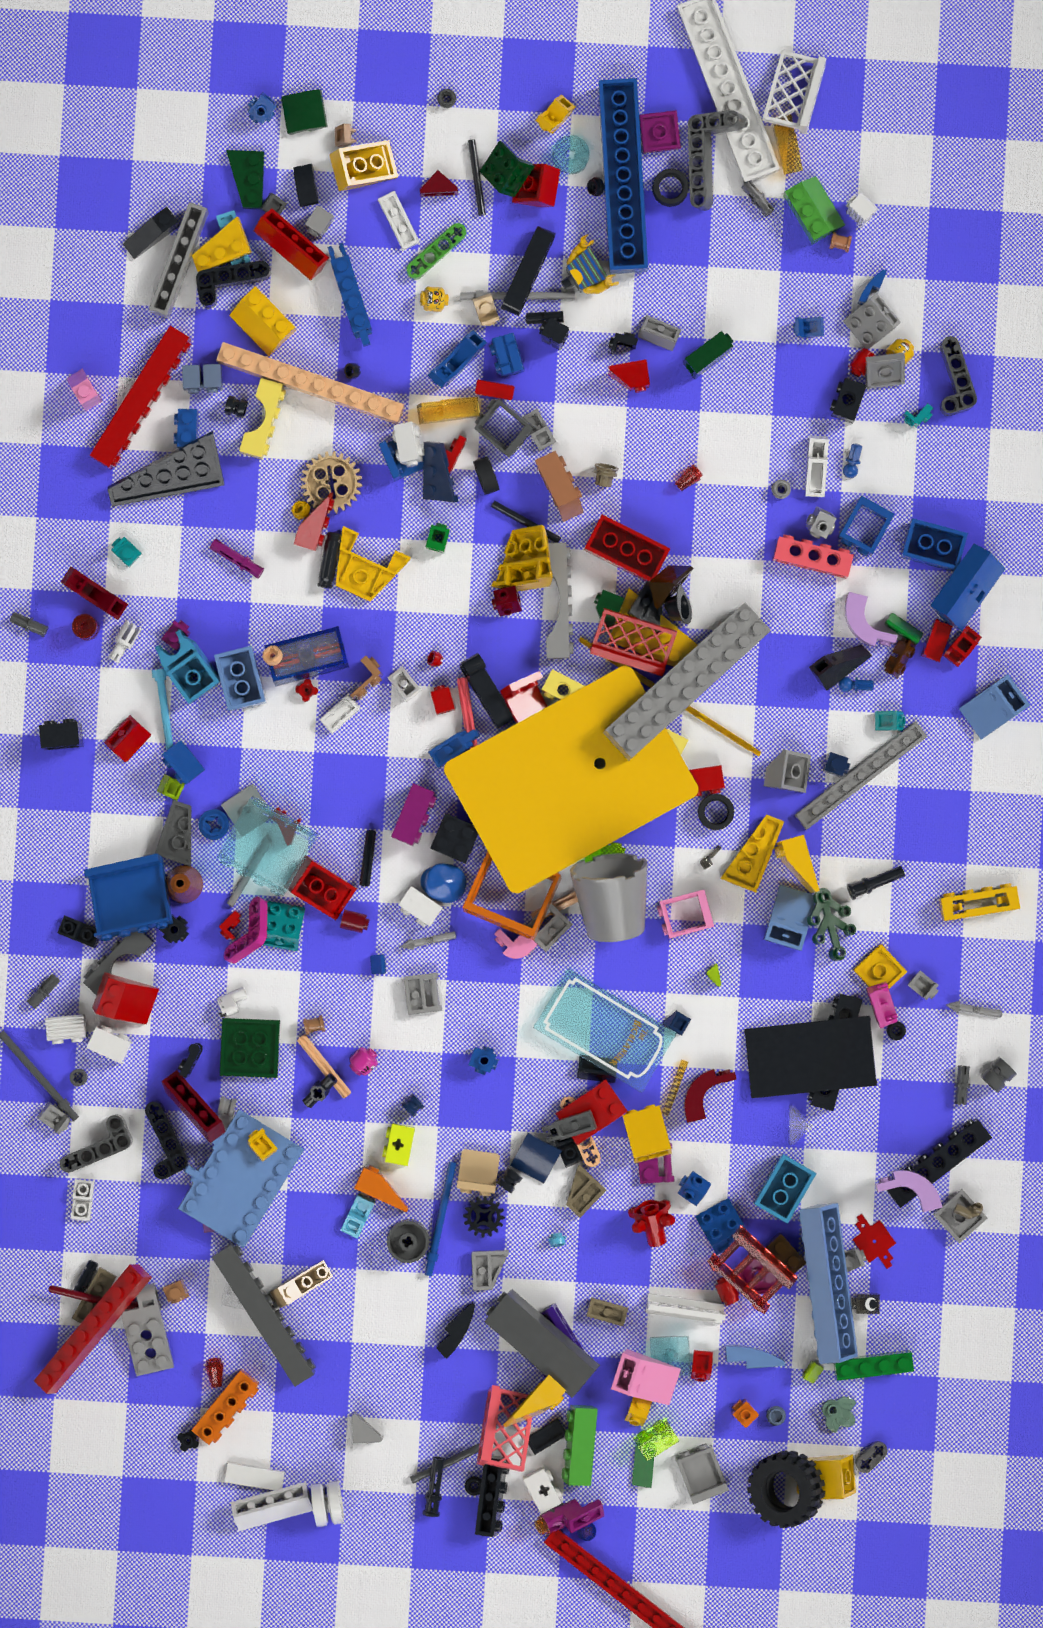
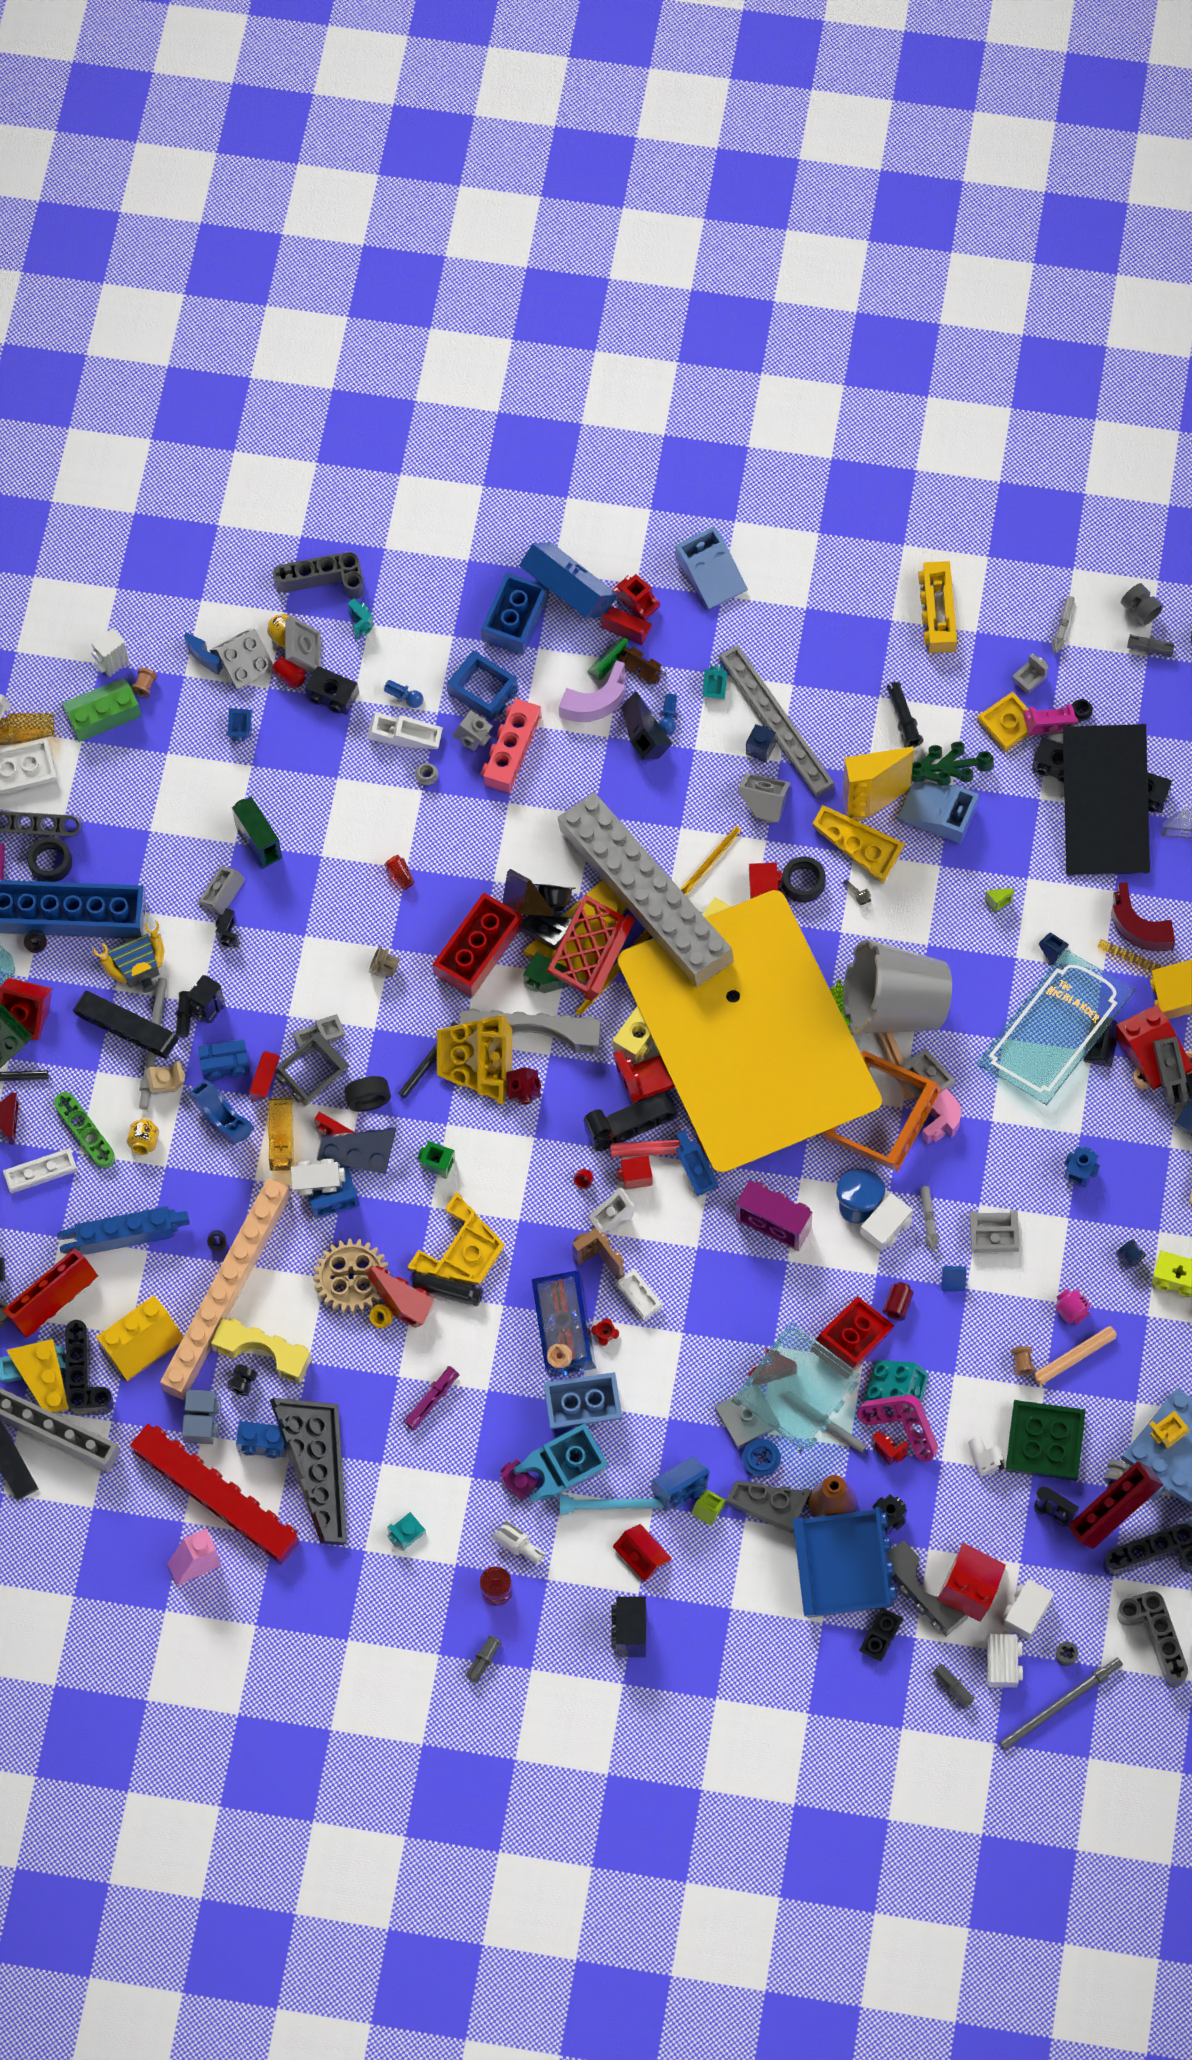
camera: 80 degrees left, 20 degrees down
(54, 1118) = (1117, 1686): light grey bracket -> none
(94, 593) = (456, 1570): dark red arch -> none
(319, 222) = (27, 1260): light grey brick -> none
(325, 1085) = (1112, 1367): black axle -> none
(367, 860) = (821, 1279): black axle -> none
(455, 838) = (807, 1173): black brick -> none
(560, 485) = (389, 1012): nougat wedge -> none
(631, 375) = (269, 920): red slope -> none
(662, 911) = (923, 901): bright pink window -> none
(757, 198) = (78, 767): flat silver pin -> none

